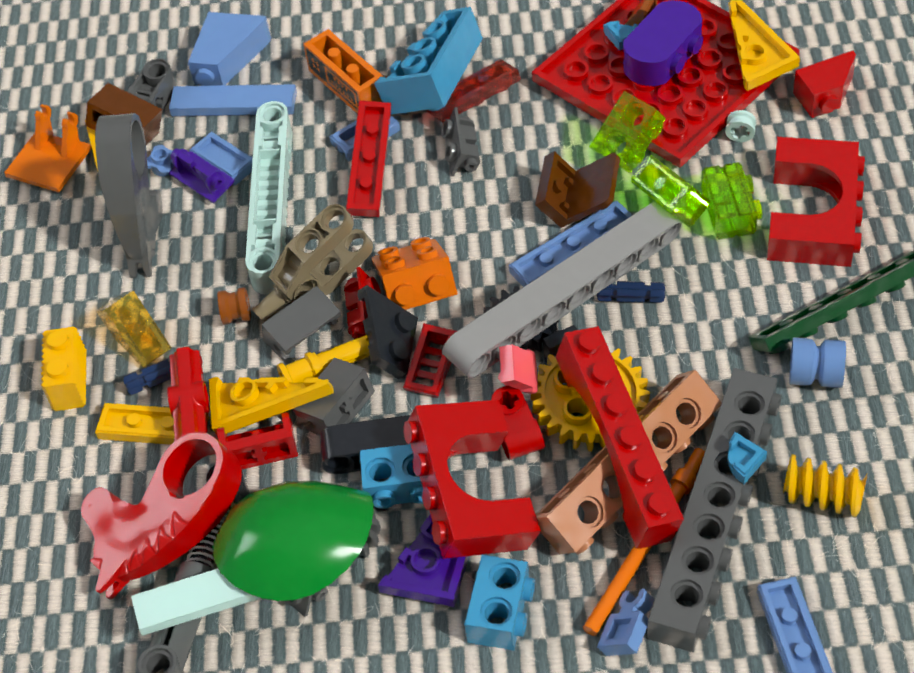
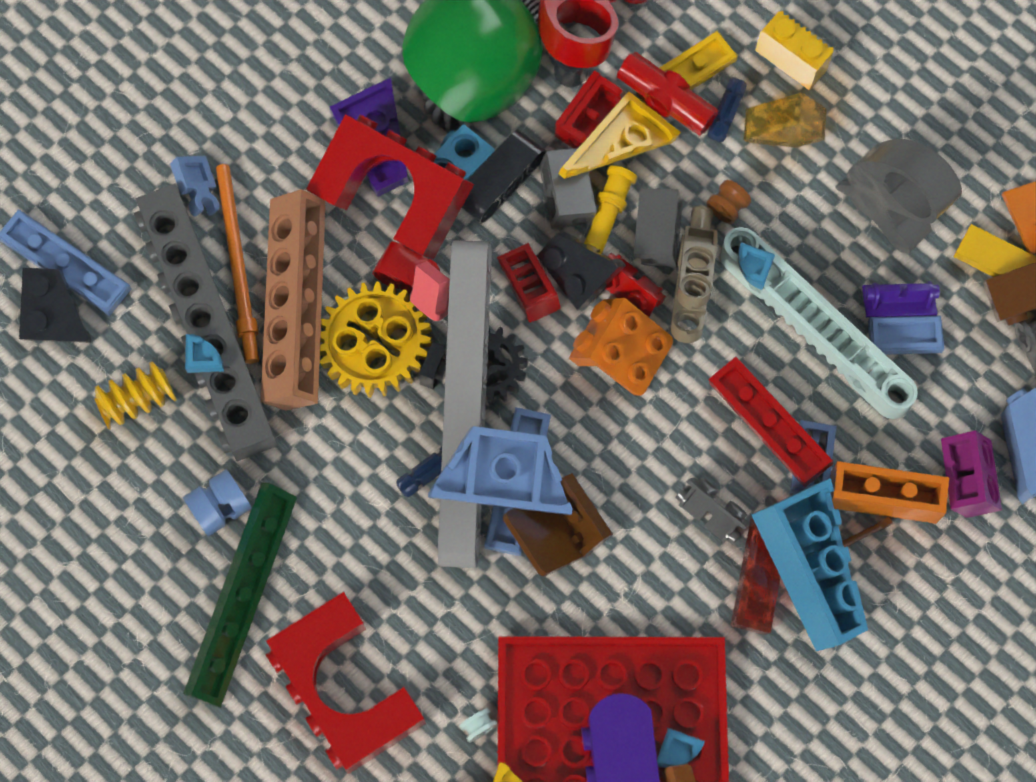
camera: 130 degrees right, 20 degrees up
(160, 161) = (949, 298): medium blue plate -> none
(229, 99) = (968, 400): medium blue tile -> none
(270, 235) = (754, 264): none -> dark azure tile
(283, 51) = (971, 474): none -> magenta brick
(491, 602) = (302, 129): dark azure brick -> none
(589, 218) = (503, 471): none -> medium blue wing
(620, 129) = (563, 619): clear neon green brick -> none
(645, 492) = (308, 294): red arch -> none
(670, 191) = (471, 582): clear neon green brick -> none
(731, 203) = (418, 624): clear neon green brick -> none
(847, 614) = (49, 309): none -> black wing

